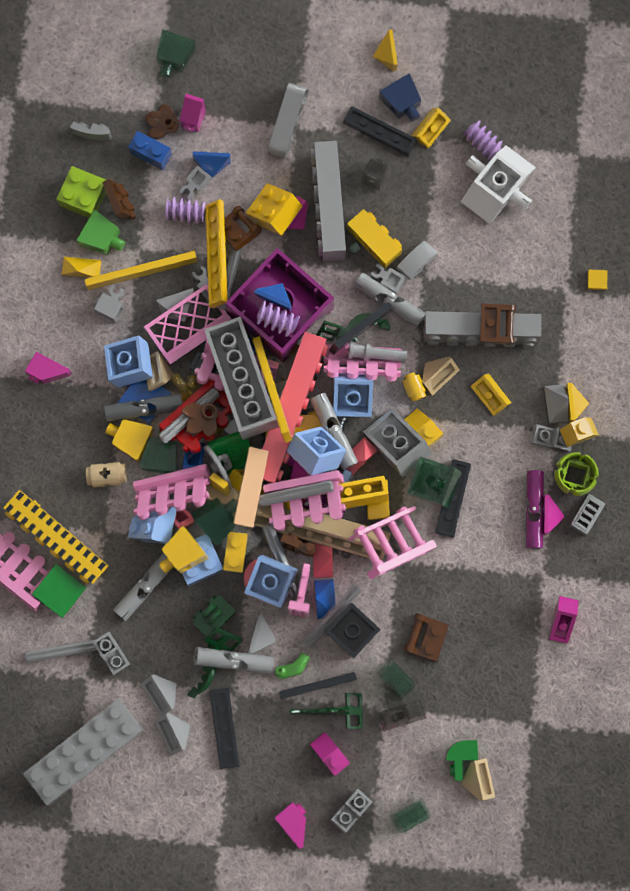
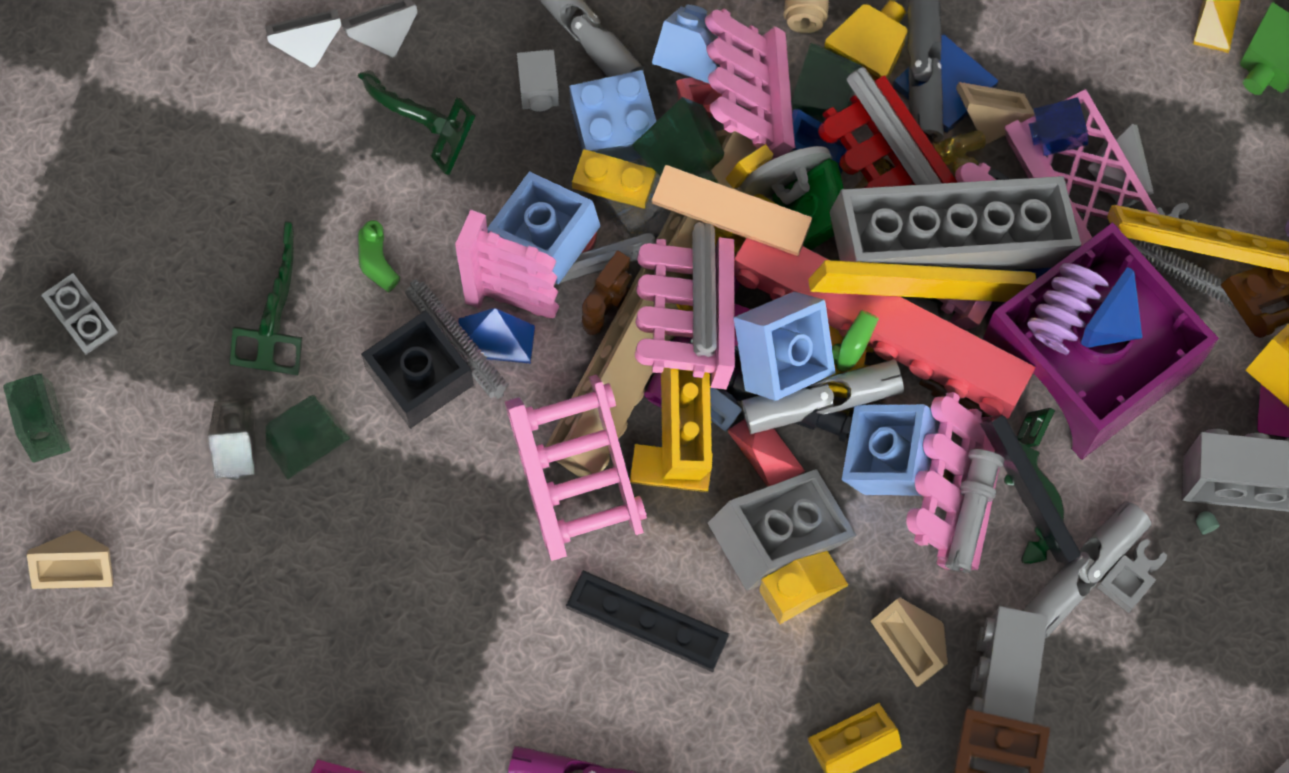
camera: 100 degrees right, 10 degrees down
(109, 306) = (1135, 46): light grey brick -> none
(128, 361) = (1019, 53): light blue brick -> none
(141, 270) = (1200, 113): yellow tile -> none
(169, 336) = (1059, 127): none -> clear blue brick
(181, 603) = (538, 80): none -> light grey brick
(182, 552) = (631, 78): yellow torso -> none
(199, 420) = (881, 144): reddish brown plate -> none
(213, 616) = (503, 132): dark green brick -> none
(220, 658) = (406, 152): light grey piece -> none
(224, 728) = (291, 121): black tile -> none
(262, 636) = (445, 207): light grey slope -> none
(293, 822) = (81, 206): dark pink slope -> none
(307, 417) = (855, 341): none -> bright green arm
(317, 685) = (328, 292): black tile -> none
(322, 561) = (566, 347): coral slope -> none
(330, 753) = (192, 292): dark pink slope -> none
(374, 238) = (1223, 562): yellow brick -> none
(414, 387) = (893, 582): yellow brick -> none
(416, 260) = (1162, 633): light grey slope -> none
(432, 640) = (369, 525): reddish brown plate -> none
(434, 482) = (683, 578): clear green brick -> none
(461, 751) = (132, 532): green brick -> none

